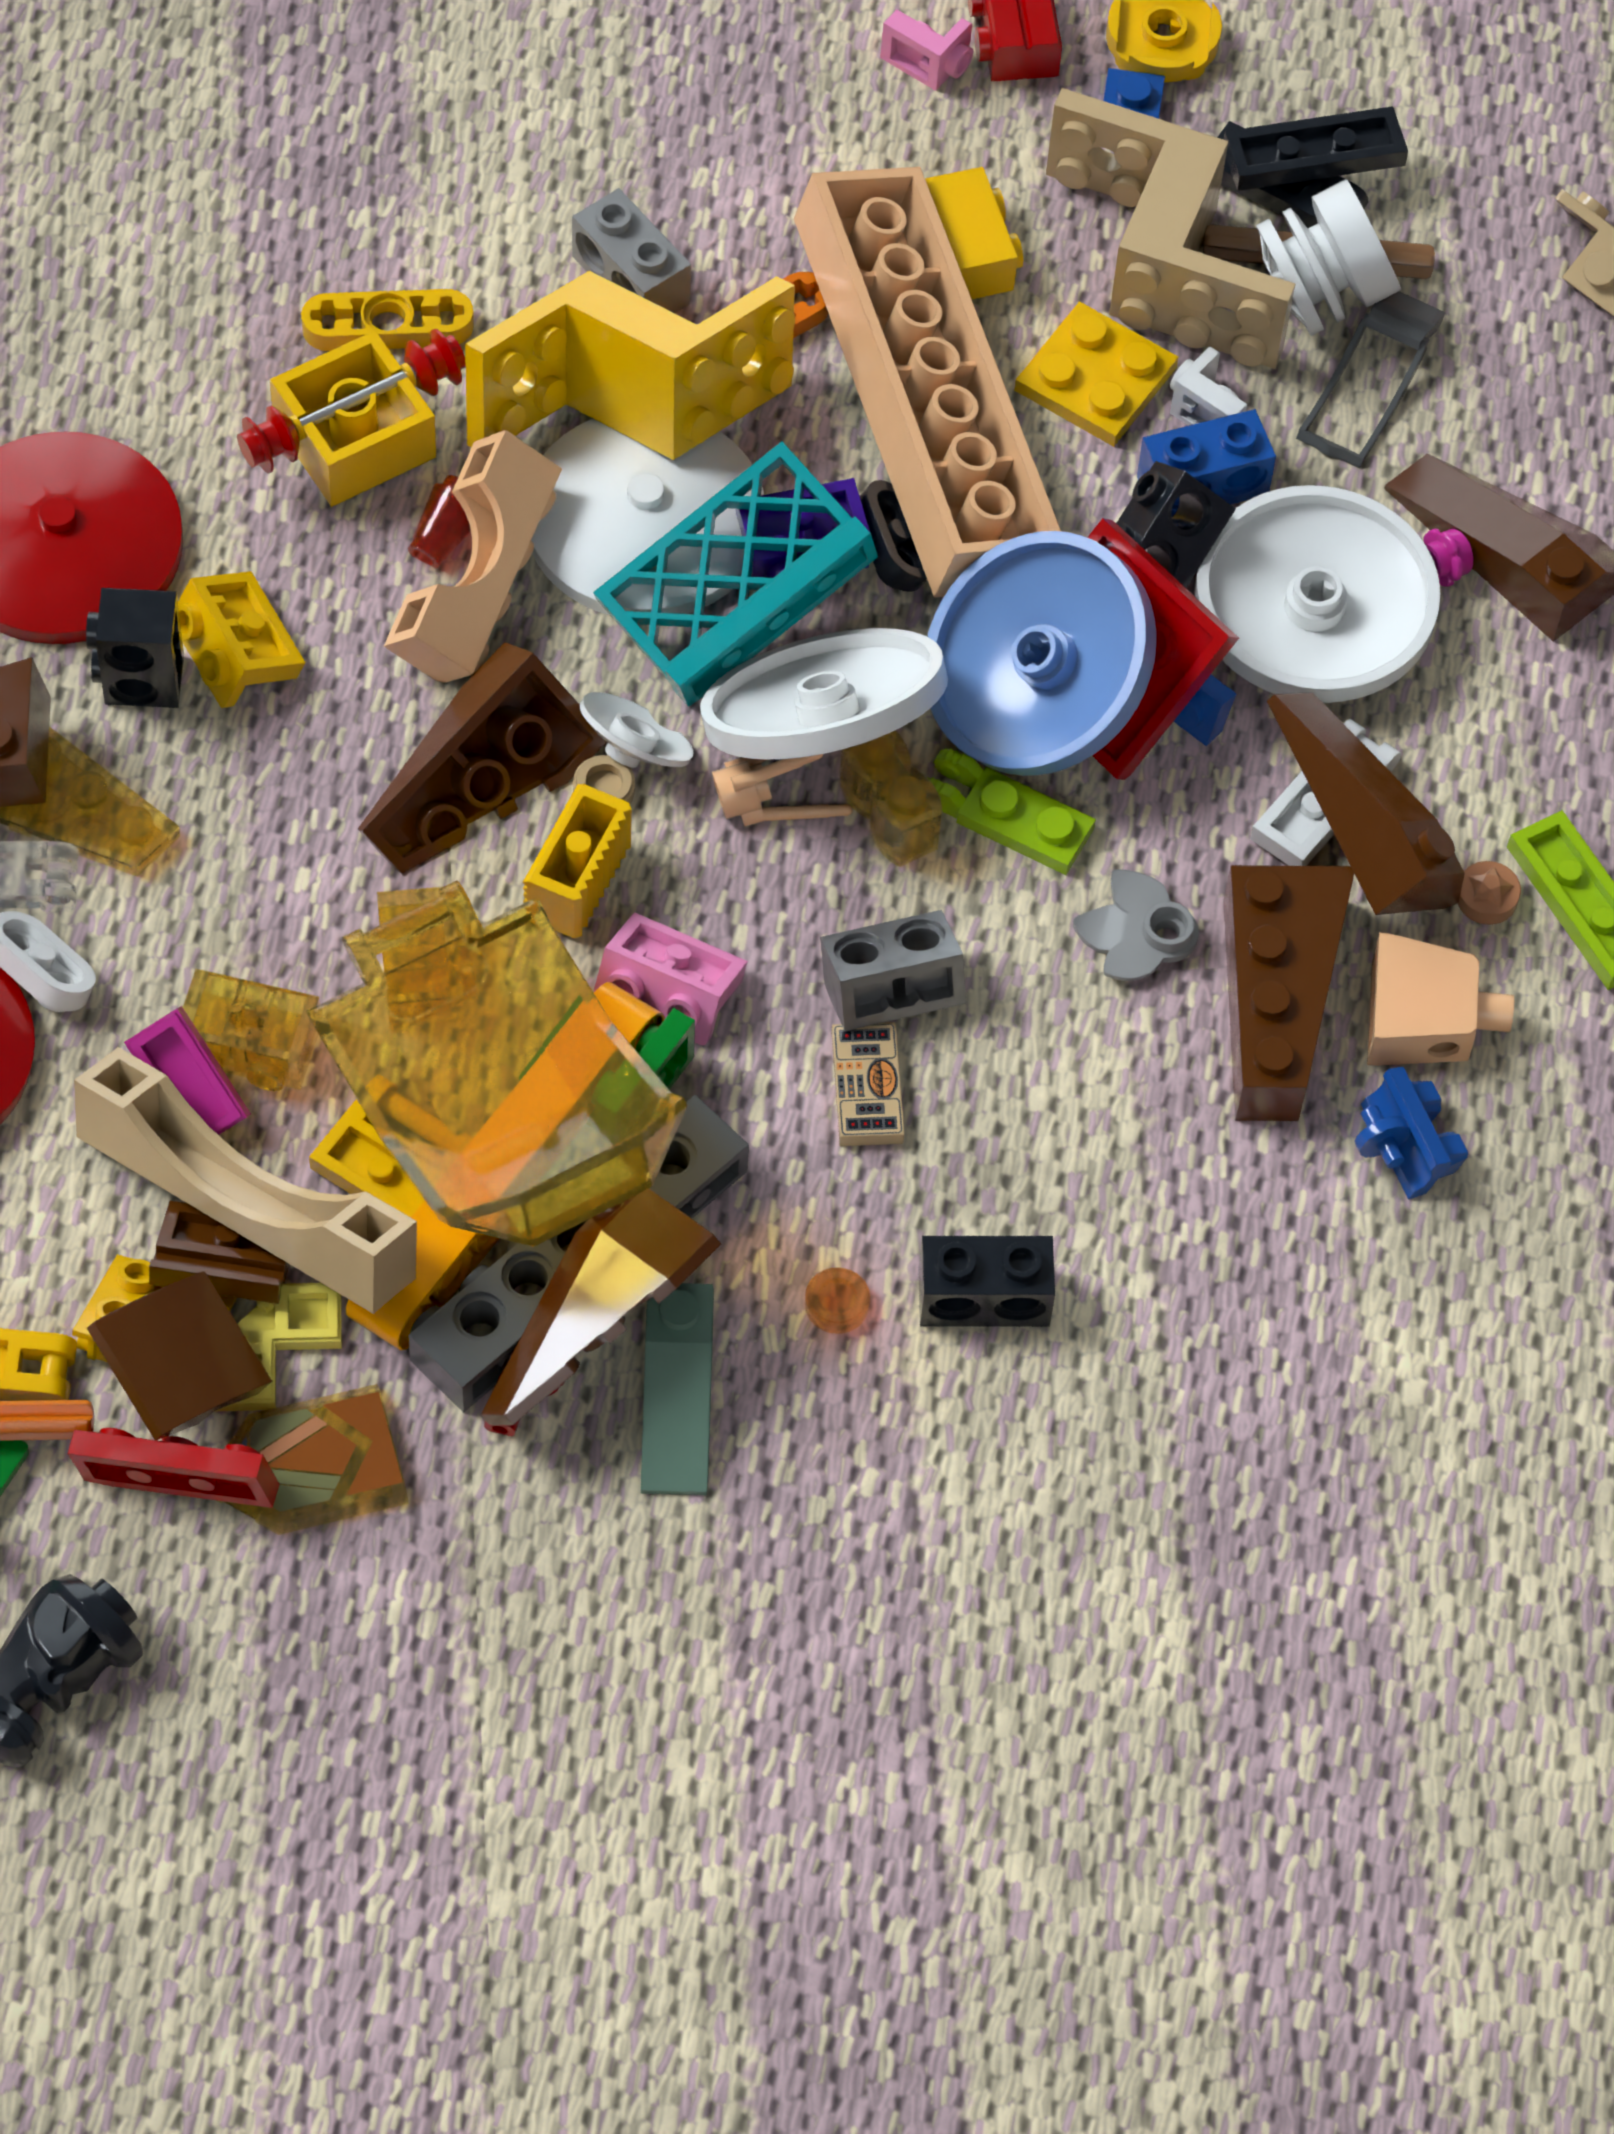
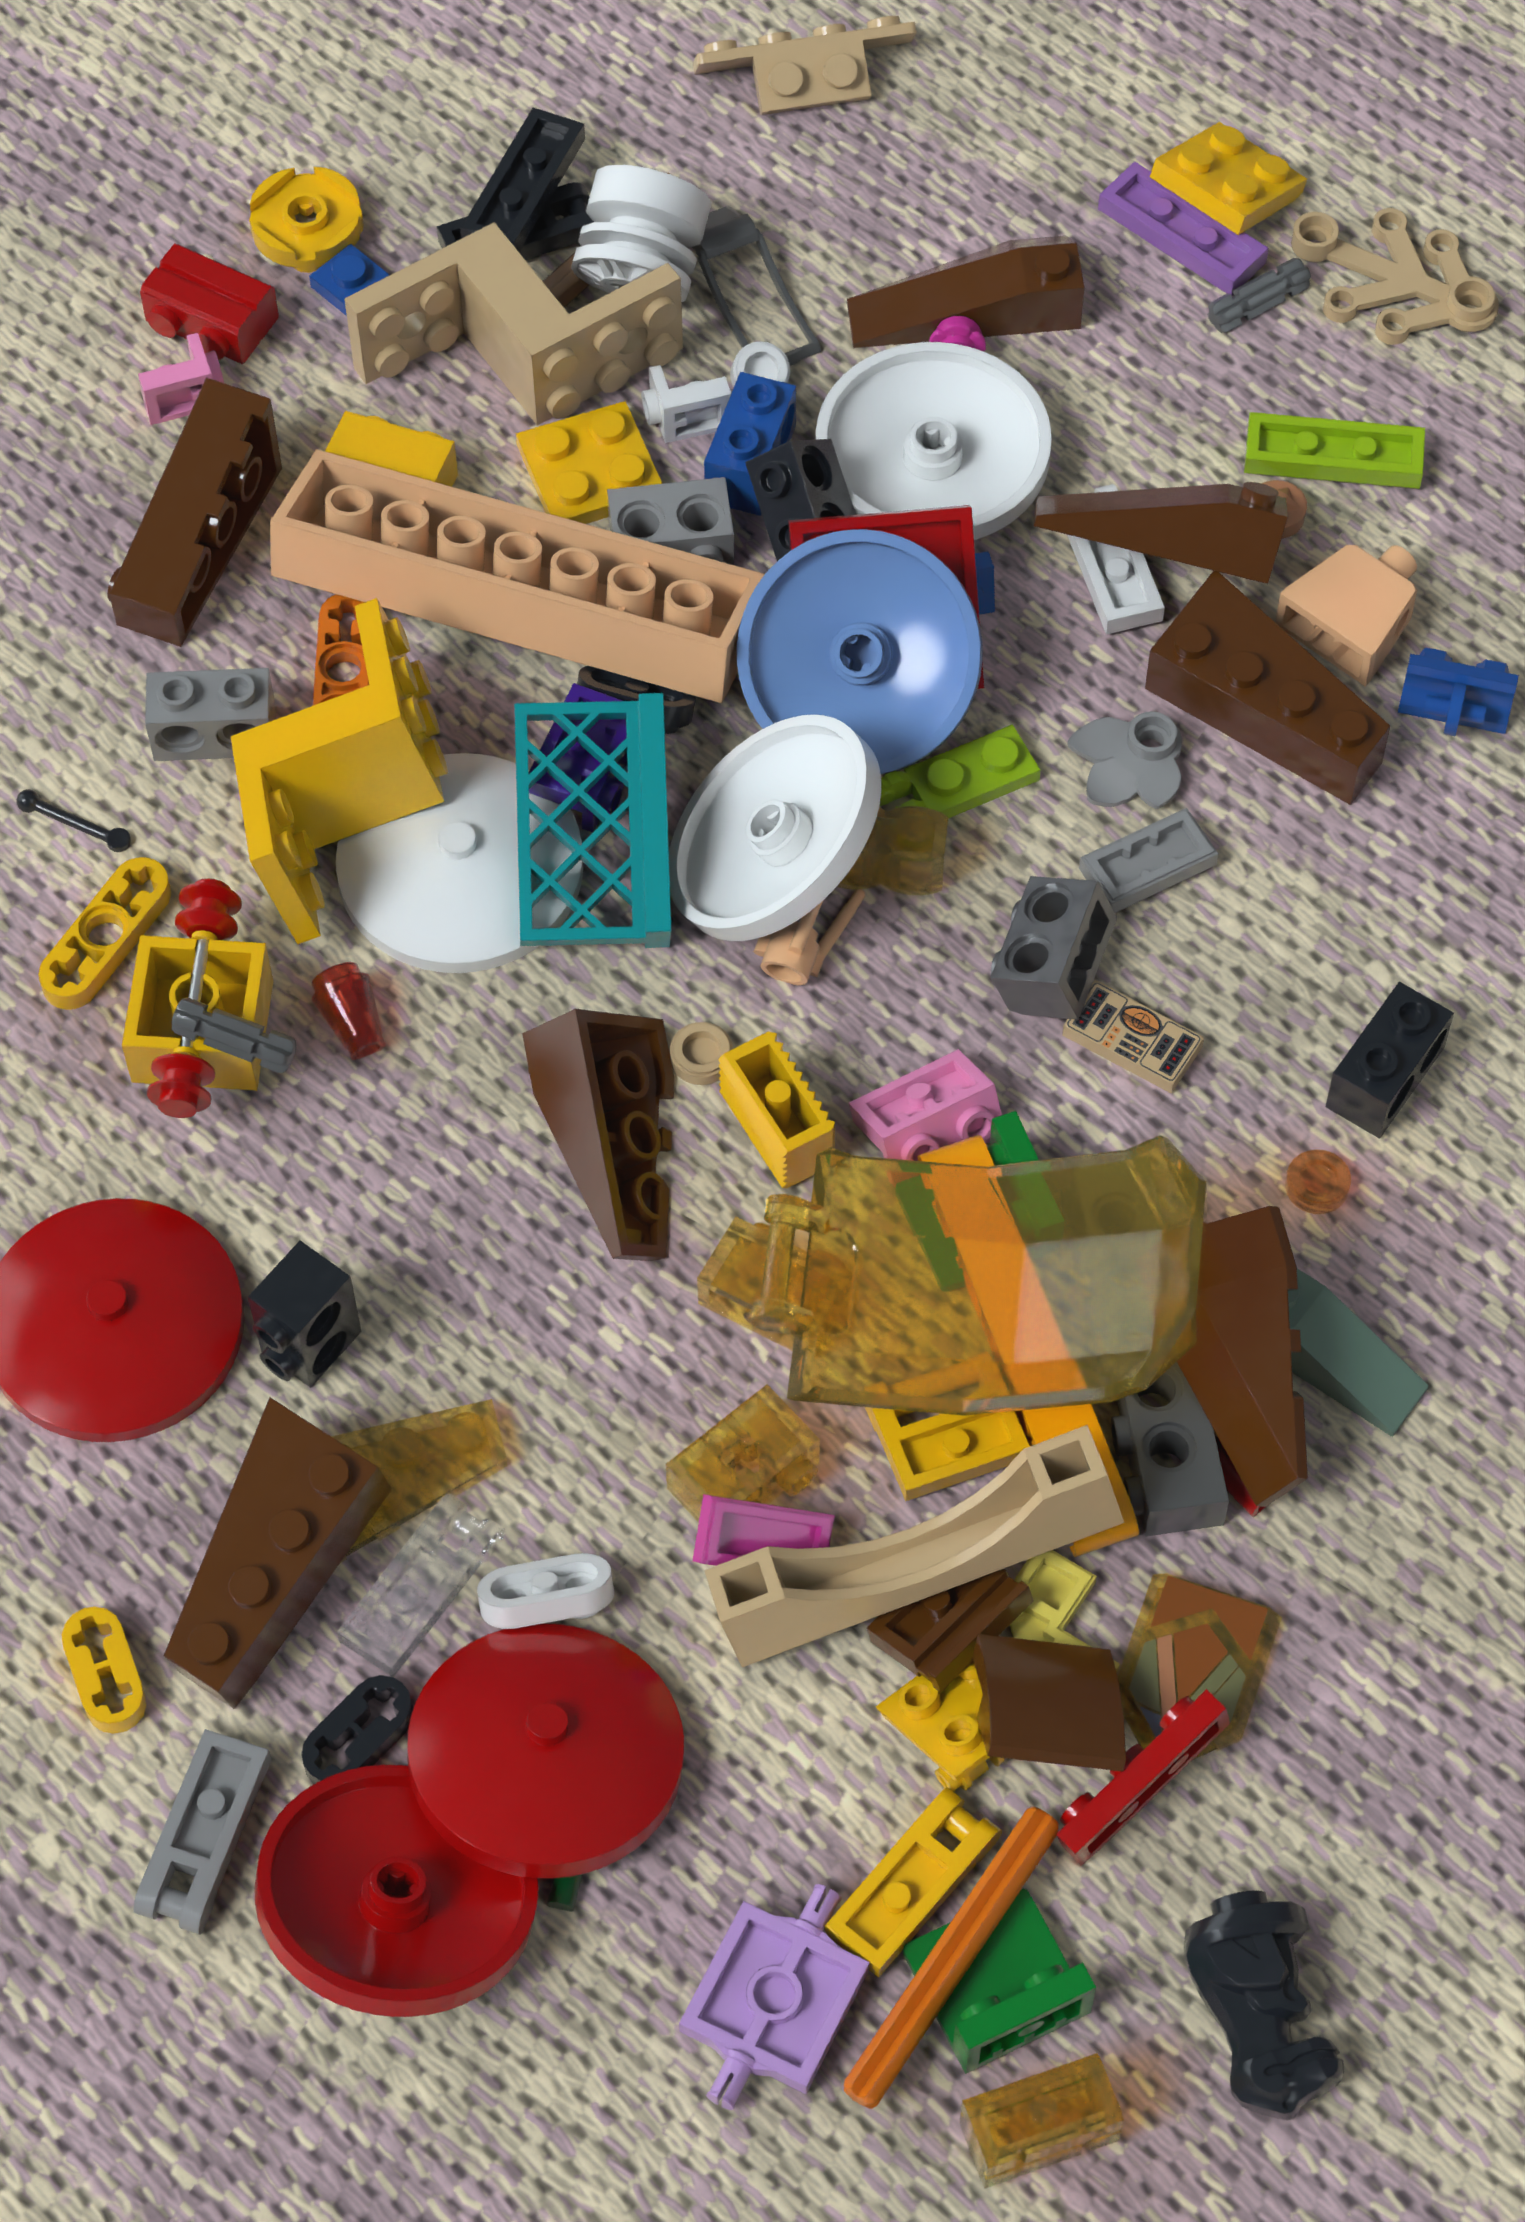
camera: 50 degrees left, 0 degrees up
(235, 635) = (347, 1230): yellow bracket -> none
(328, 442) = (233, 1035): none -> dark grey axle
(480, 276) = (116, 839): none -> black hinge
(504, 496) = (386, 946): light nougat arch -> none
(633, 732) = (681, 998): white dish -> none
(827, 122) = (197, 512): none -> reddish brown wedge
(1044, 996) = (1150, 860): none -> light grey plate
(1082, 456) = (675, 514): none -> light grey brick
(1293, 433) = (761, 360): none -> white tile

